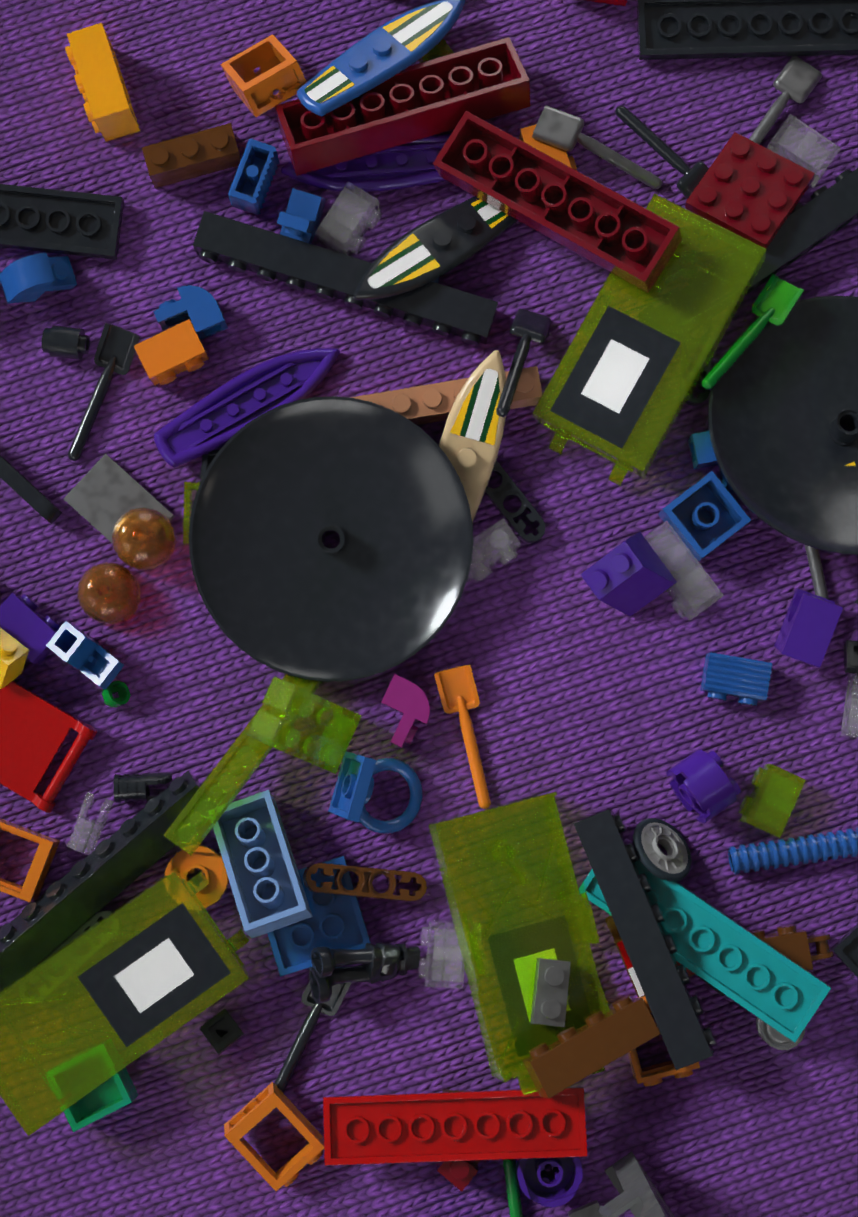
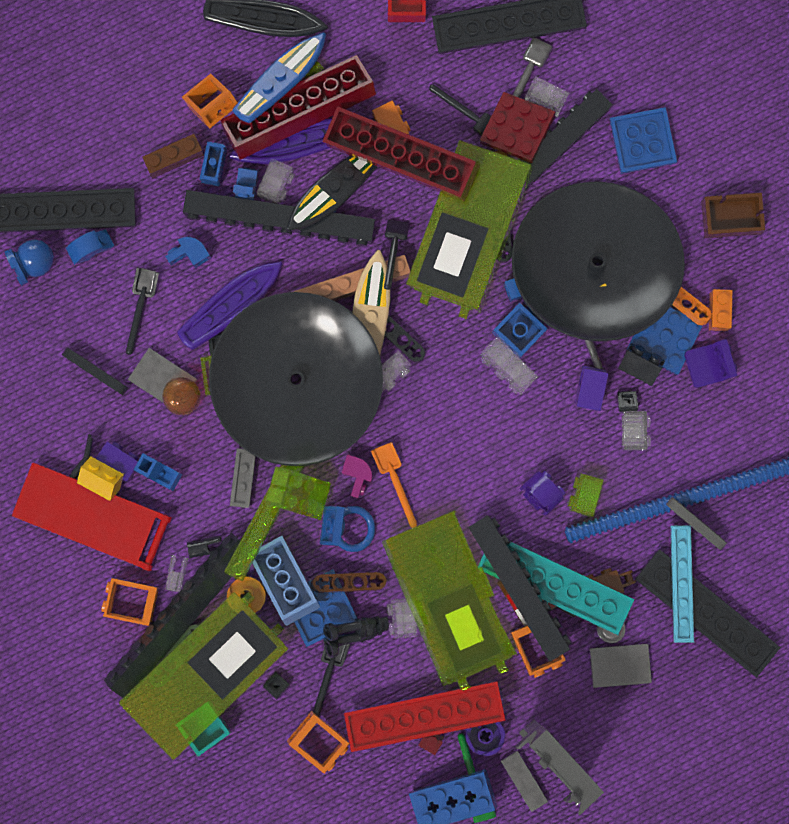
camera: 15 degrees left, 0 degrees up
(65, 342) = (113, 283): black brick -> none
(101, 83) = (110, 120): light orange brick -> none
(113, 604) = (169, 439): clear orange cylinder -> none
(114, 687) = (183, 491): green hinge -> none
(171, 353) = (180, 279): orange brick -> none
(221, 687) = (242, 479): none -> flat silver plate
(550, 992) = (470, 630): flat silver plate -> none
(565, 130) = (399, 107): flat silver piece -> none
(591, 1046) = (498, 656): reddish brown brick -> none
(629, 576) = (479, 373): dark purple slope -> none
(667, 867) = (513, 531): light grey wheel -> none
(735, 677) = (553, 425): blue brick -> none
(771, 306) = (542, 195): green piece -> none
(787, 1087) = (620, 665): none -> flat silver tile

